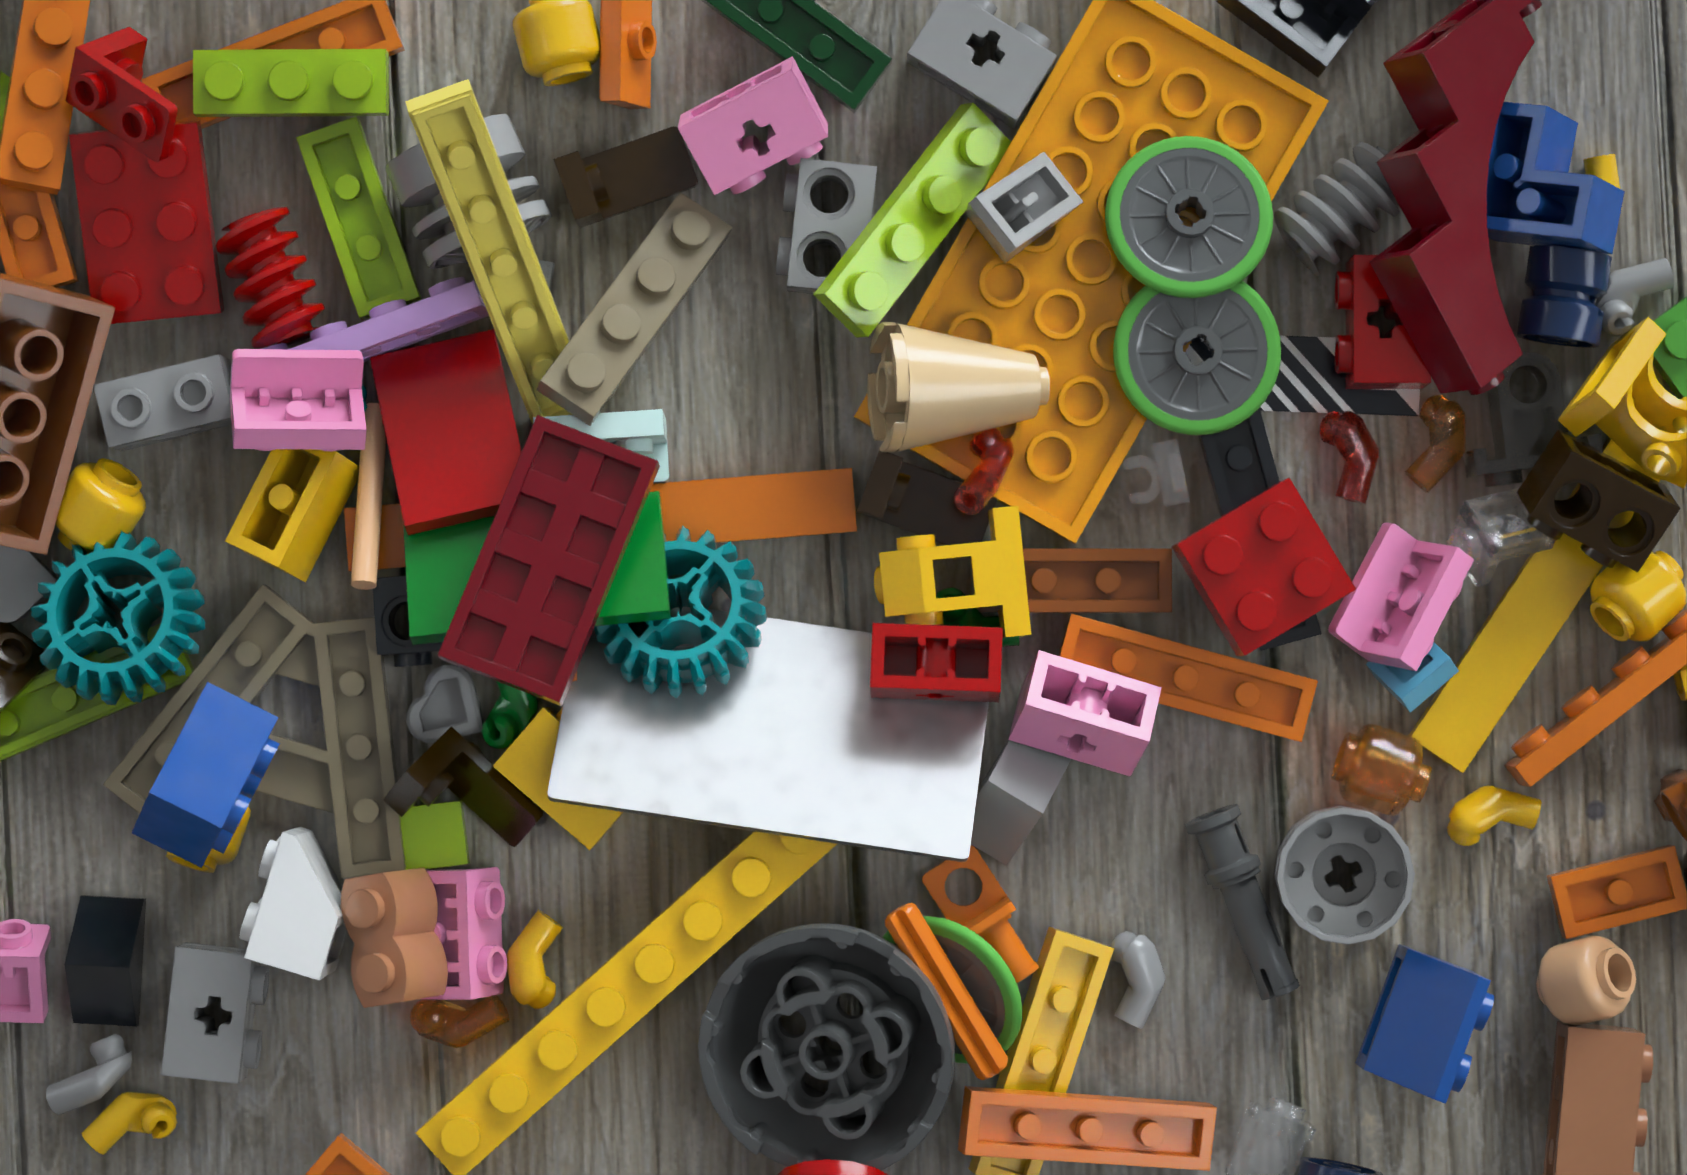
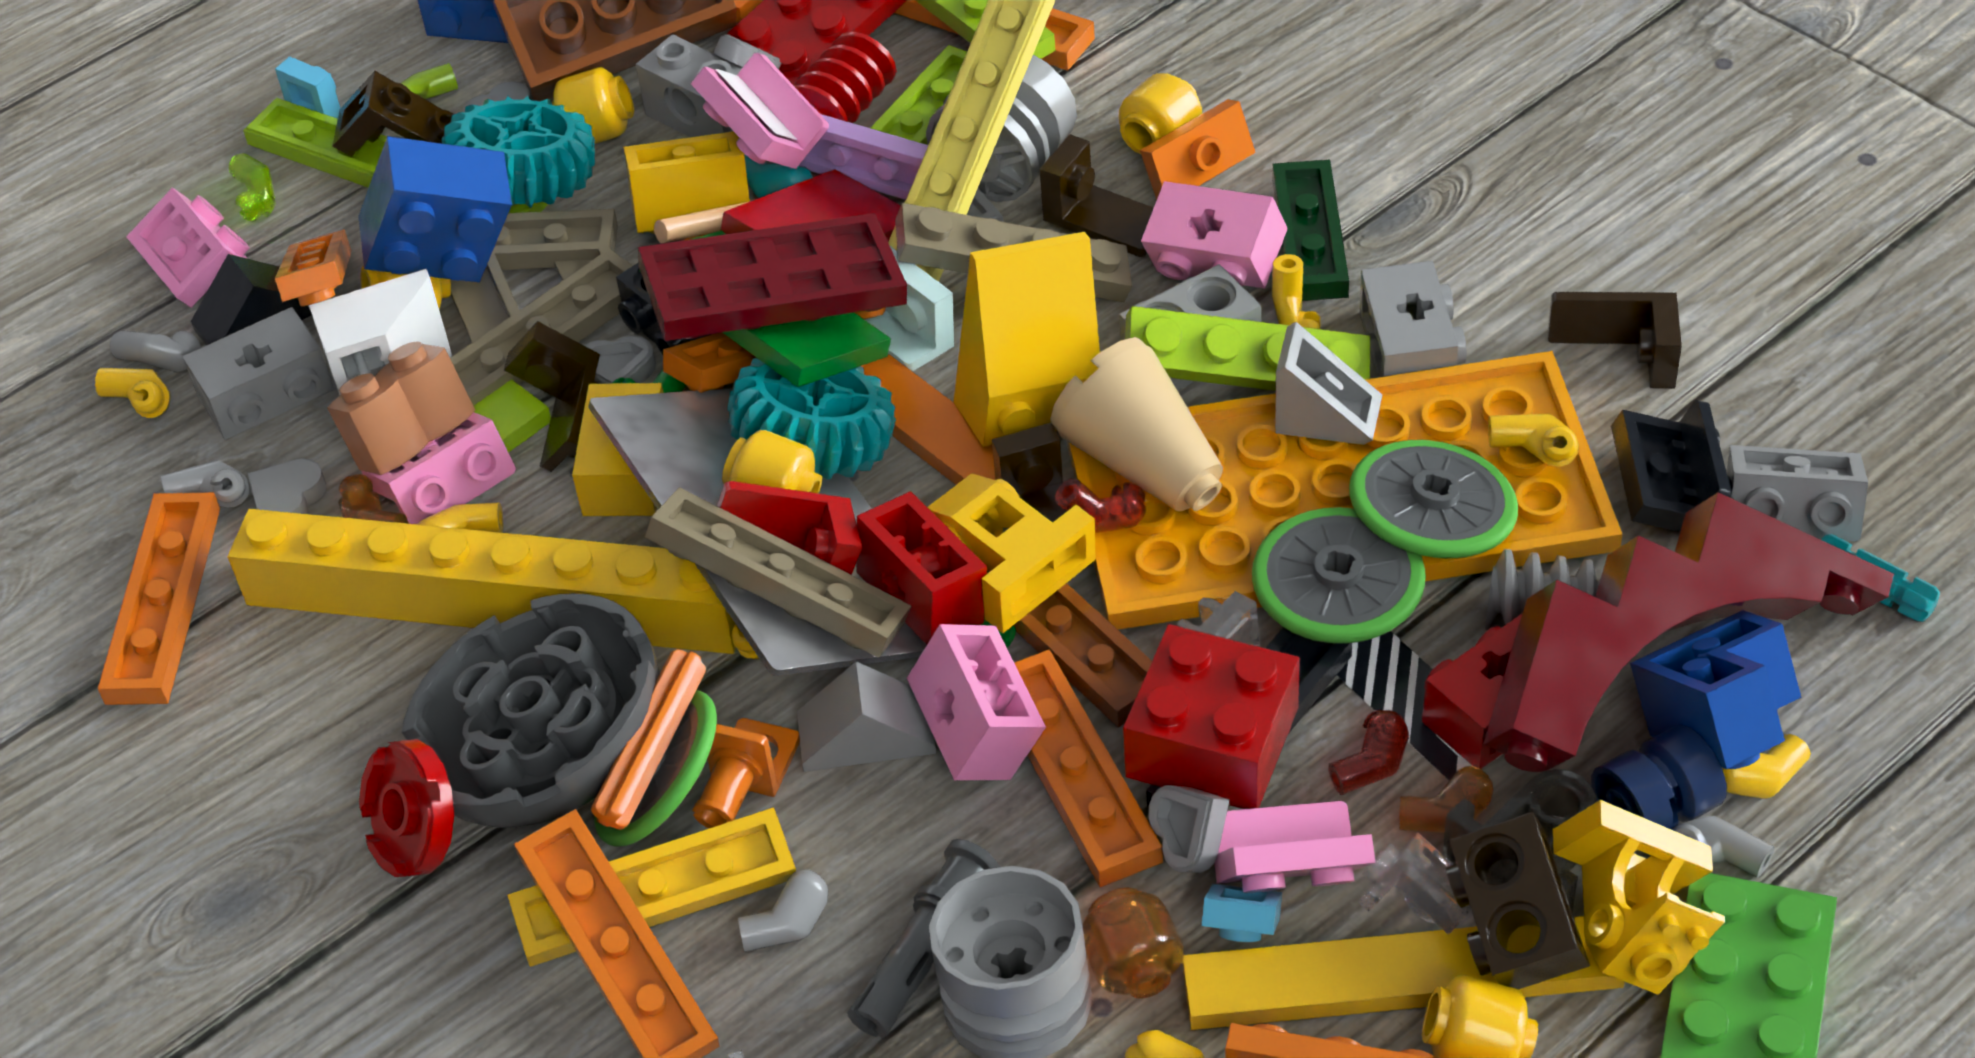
camera: 60 degrees right, 40 degrees down
(155, 904) = (314, 268): none -> orange plate
(171, 338) = (740, 51): none -> light grey tile
(292, 401) = (756, 104): none -> white sticker
(304, 1121) = (215, 476): none -> light grey arm
(368, 1070) = (288, 486): none -> light grey tile
(747, 707) = (772, 462): none -> yellow head
(791, 404) = (1025, 332): none -> yellow slope
(852, 708) = (807, 520): none -> red bracket
(869, 785) = (778, 572): none -> dark tan plate
(882, 133) = (1287, 293): none -> yellow arm
(1195, 77) = (1537, 433): none -> yellow arm
(1324, 652) = (1189, 825): none -> light grey tile

